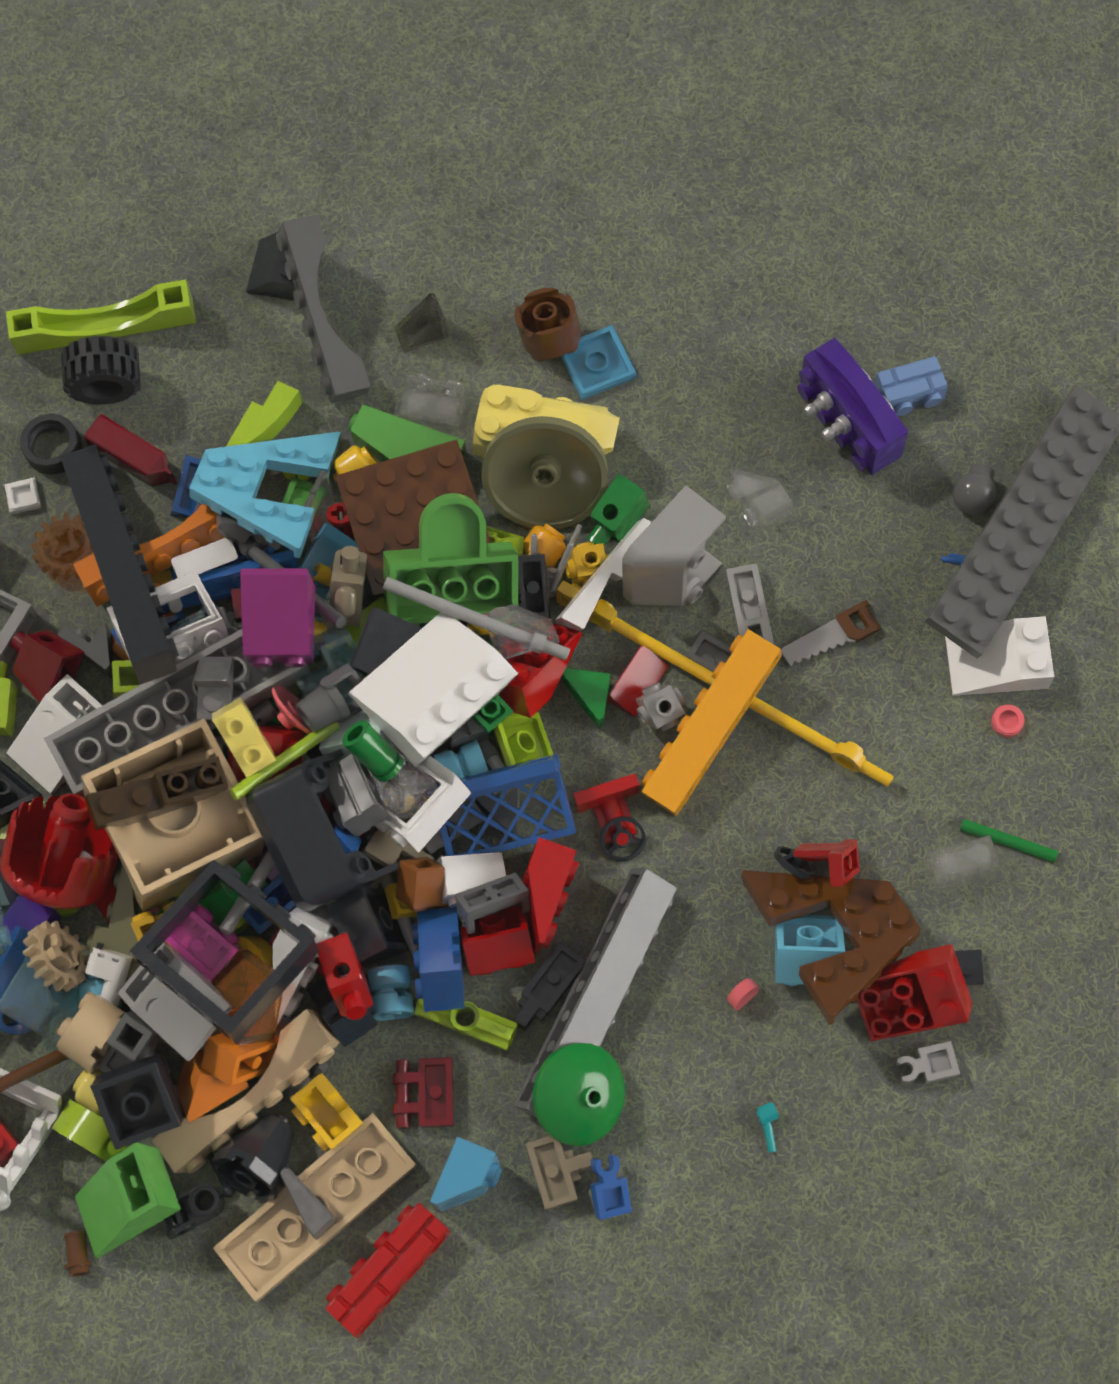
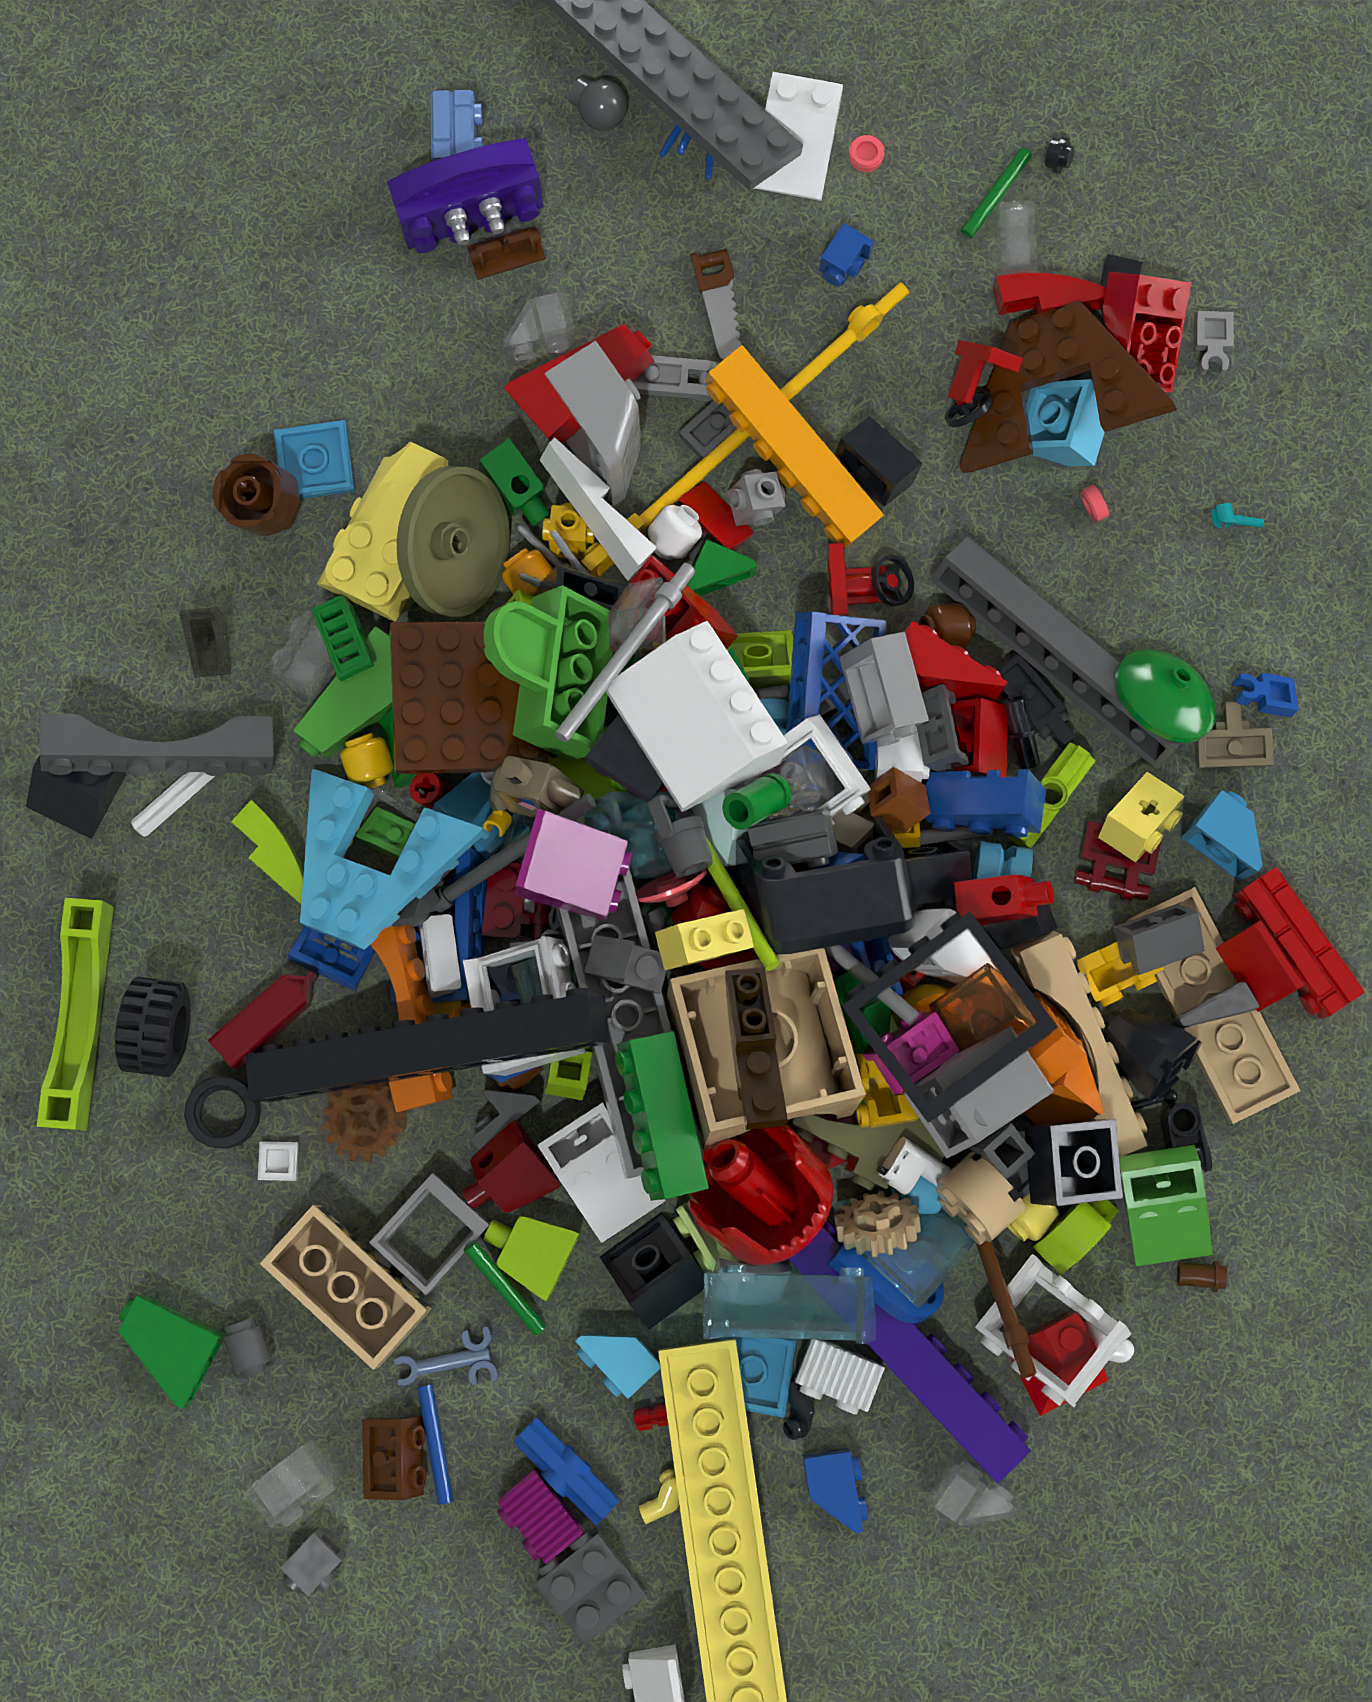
camera: 80 degrees left, 10 degrees up
(93, 744) = (661, 1116): none -> green brick
(285, 335) = (169, 802): none -> white axle
(354, 1233) = (1260, 963): none -> red slope
(355, 1136) = (1159, 938): none -> dark grey hinge
(459, 404) = (332, 617): none -> green slope
(479, 1099) = (1141, 817): none -> light yellow brick
(503, 837) = (884, 689): none -> light grey window
(516, 980) = (1022, 730): none -> black axle
(593, 894) = (951, 623): none -> reddish brown head
(612, 649) = (675, 531): none -> white head
(723, 797) = (877, 461): none -> black brick
(735, 550) = (543, 405): none -> red slope
(819, 455) = (506, 252): none -> reddish brown hinge
(903, 724) = (845, 255): none -> blue brick
(922, 900) = (1044, 292): none -> red slope
(1061, 884) = (1059, 154): none -> black plate

